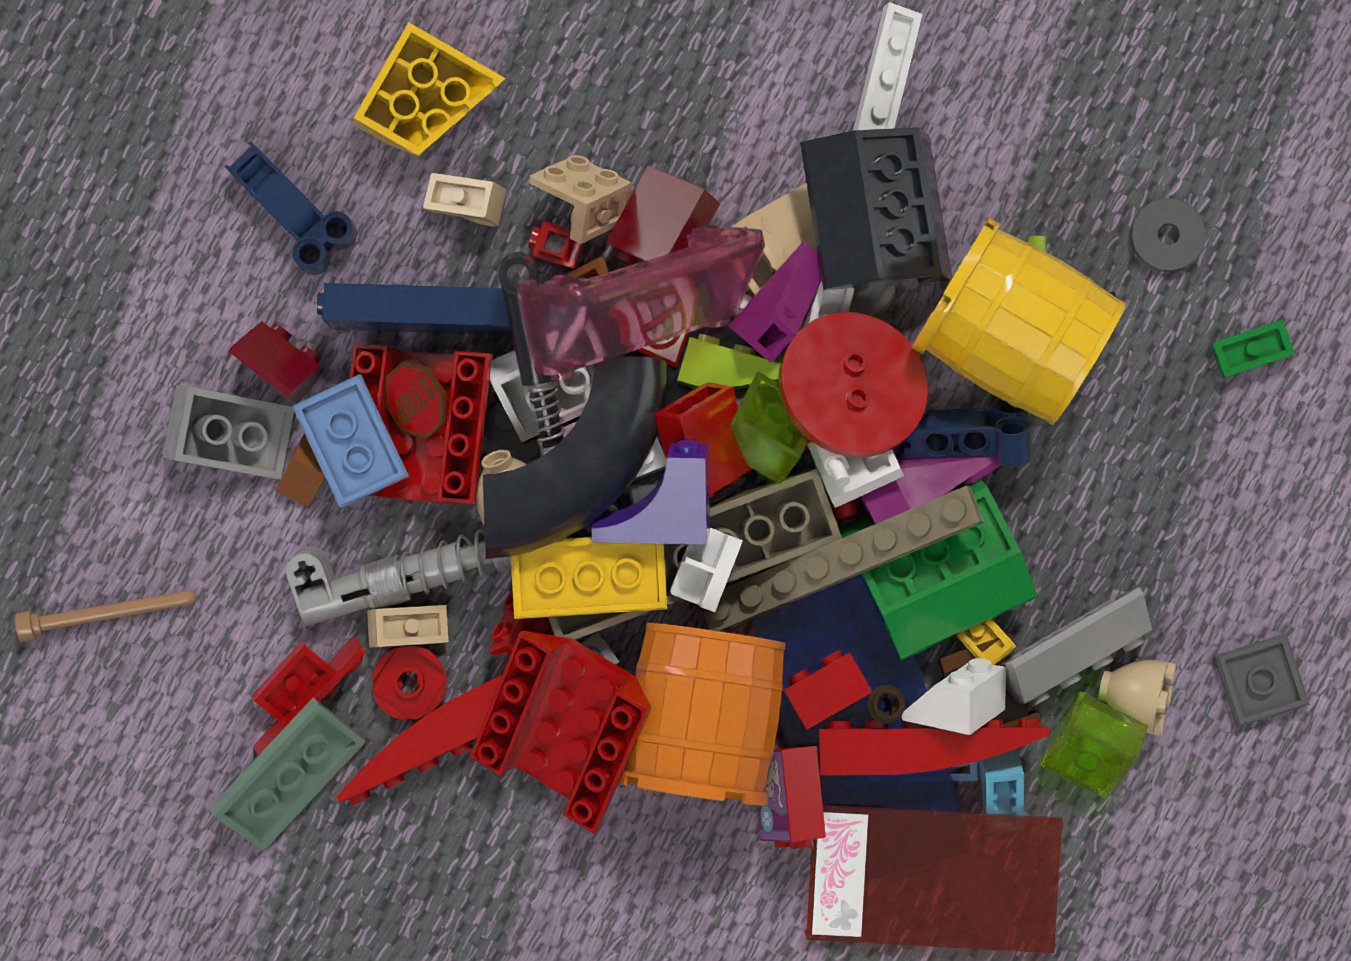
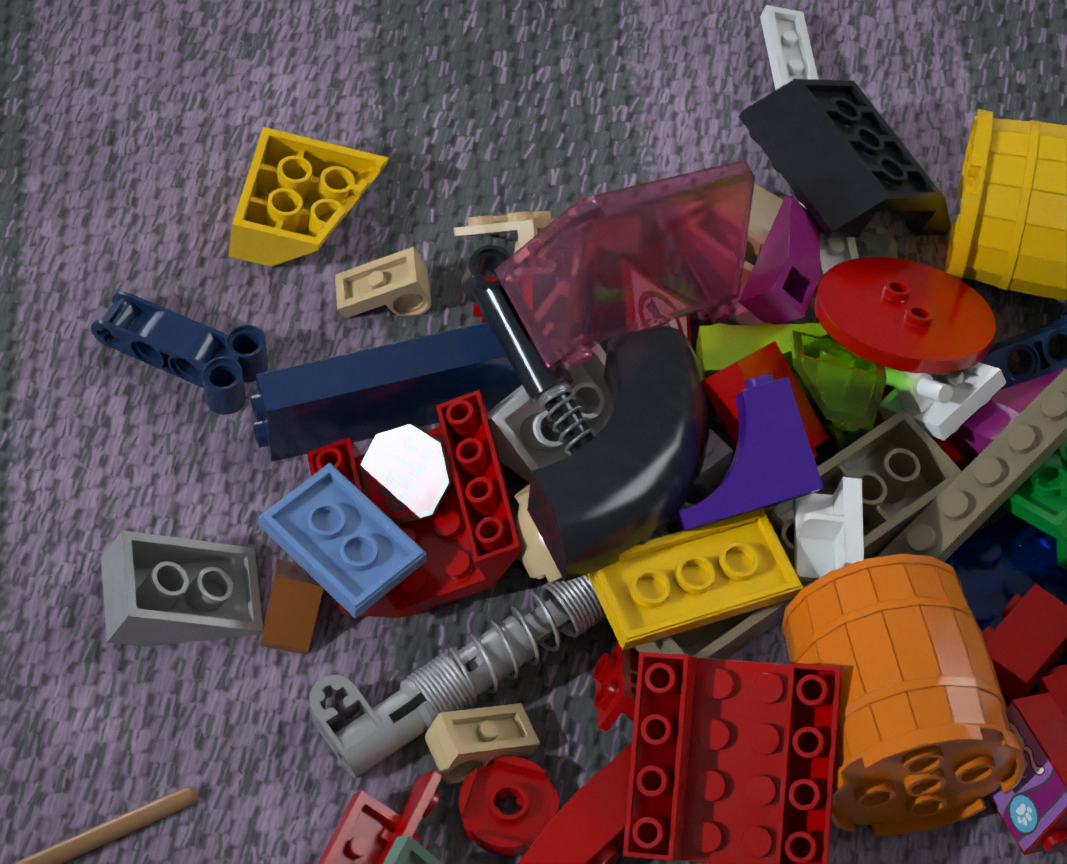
camera: 25 degrees left, 30 degrees down
(278, 361) = (217, 498): dark red slope -> none

